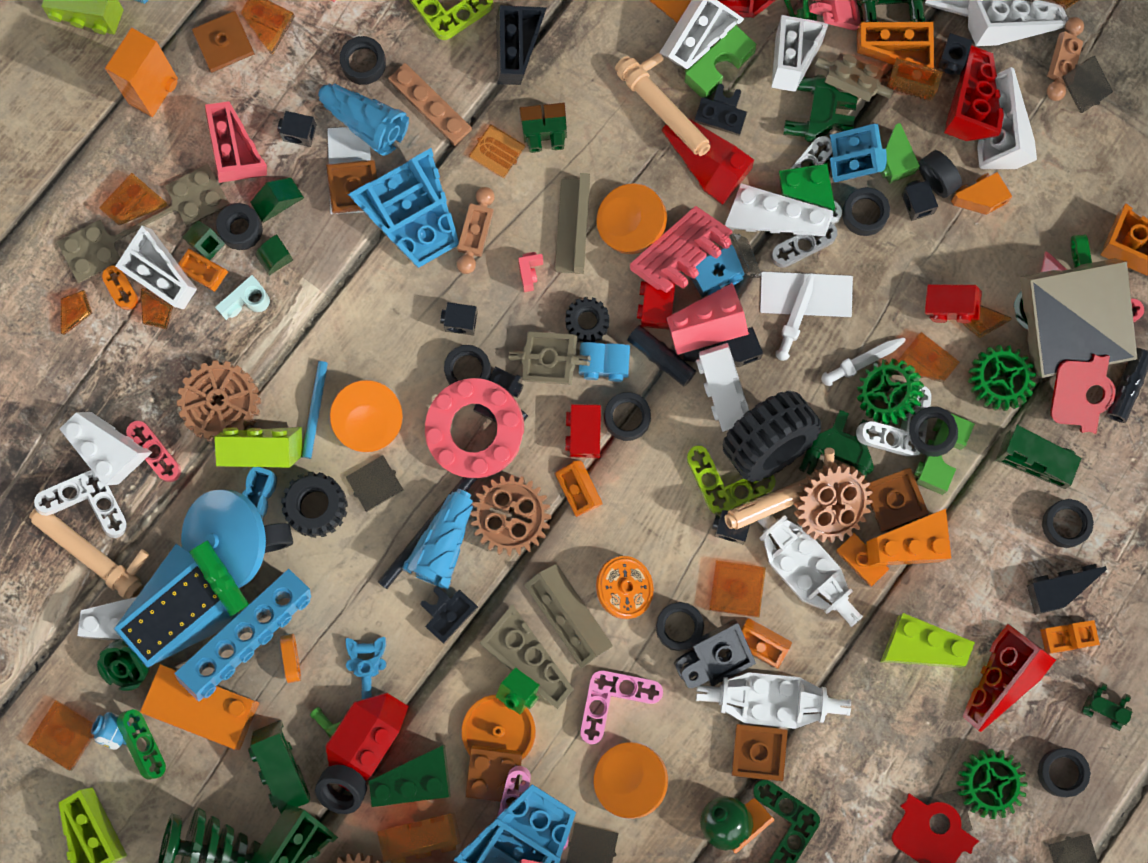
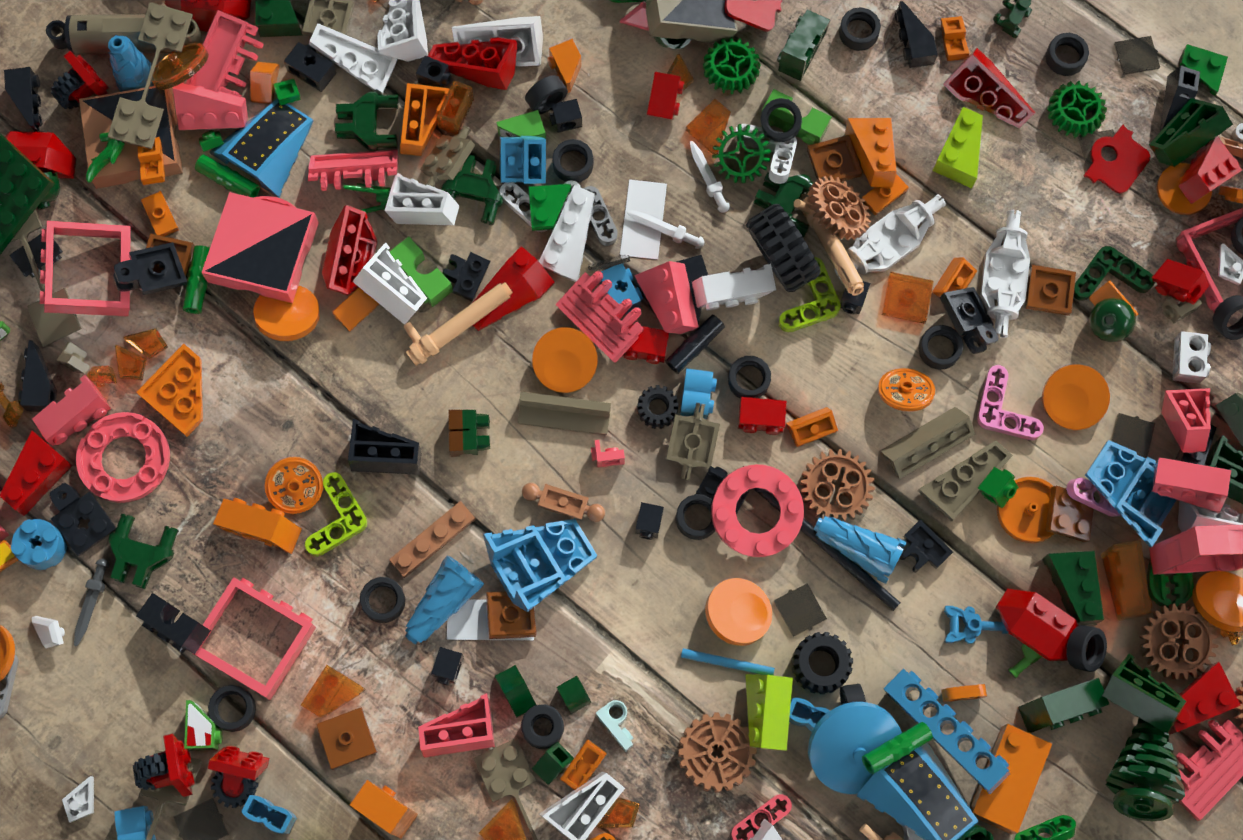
camera: 90 degrees left, 5 degrees down
(497, 151) = (485, 479): clear orange piece -> none

